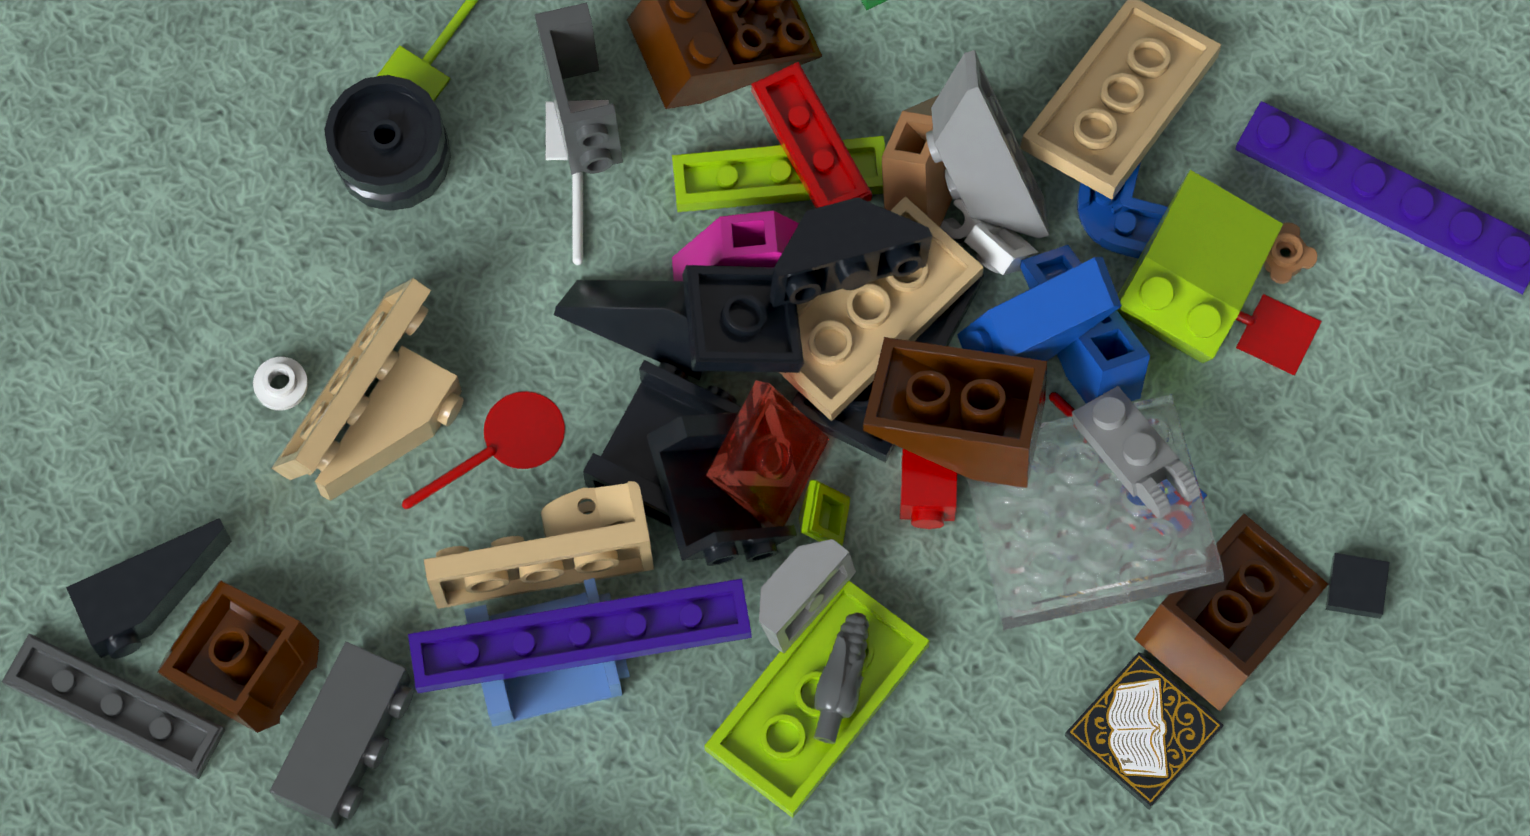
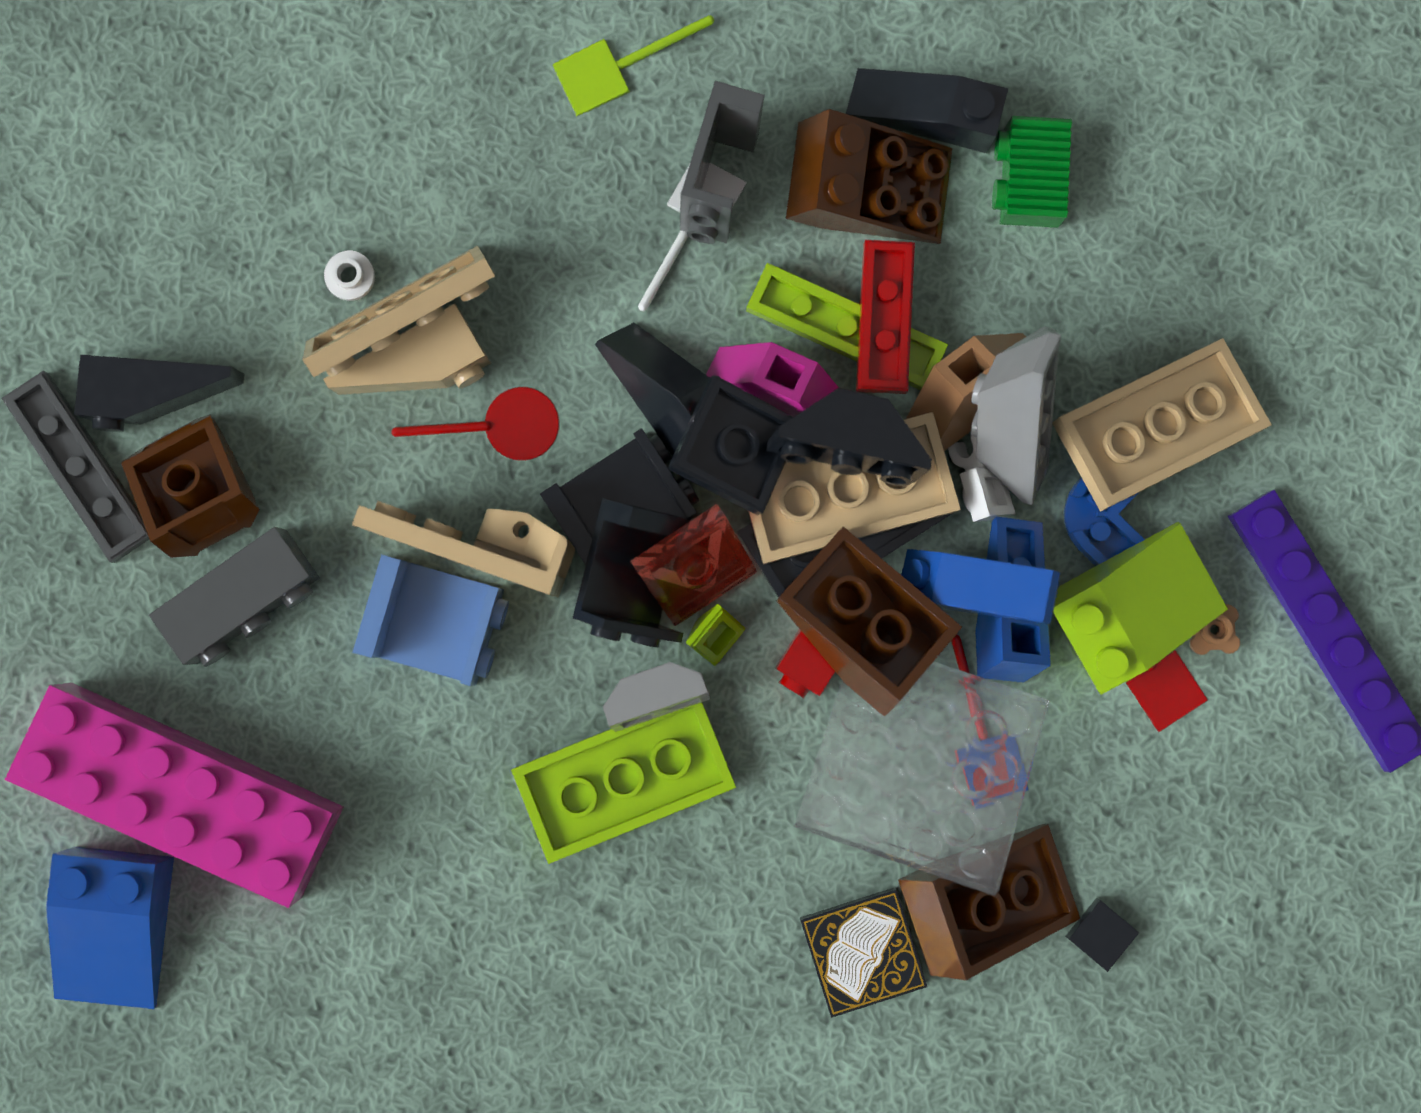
camera: 25 degrees right, 15 degrees up
(388, 142) = (535, 91): black wheel -> none
(579, 636) = (454, 634): dark purple plate -> none
(841, 678) = (645, 784): dark grey piece -> none
(1134, 450) = (989, 737): light grey hinge -> none

